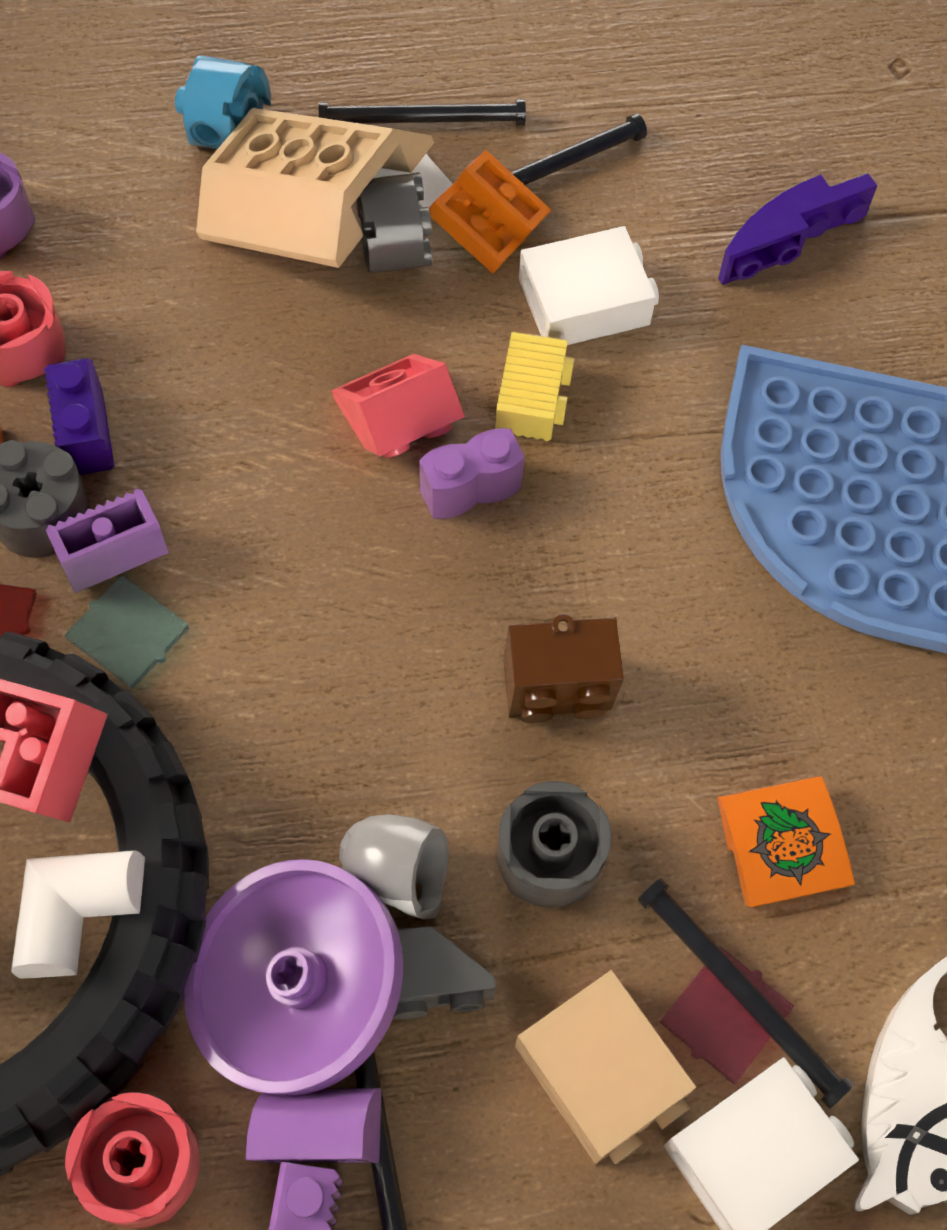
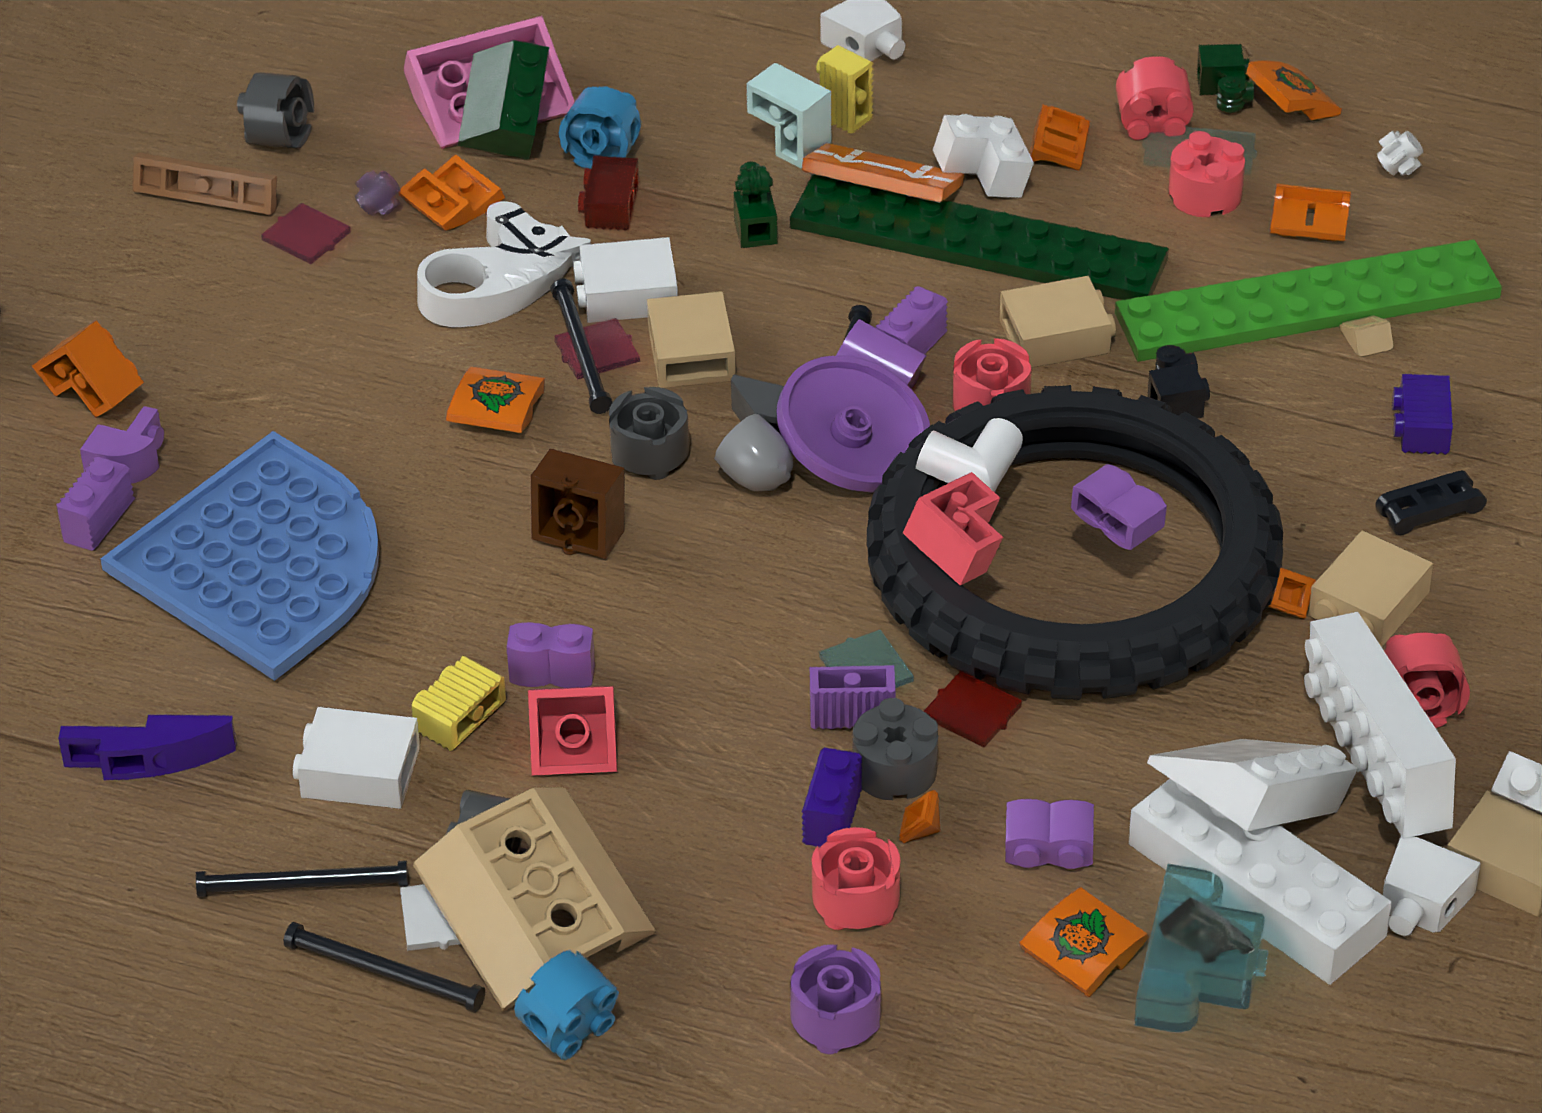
camera: 150 degrees left, 20 degrees down
(488, 211) = (390, 846): orange slope -> none

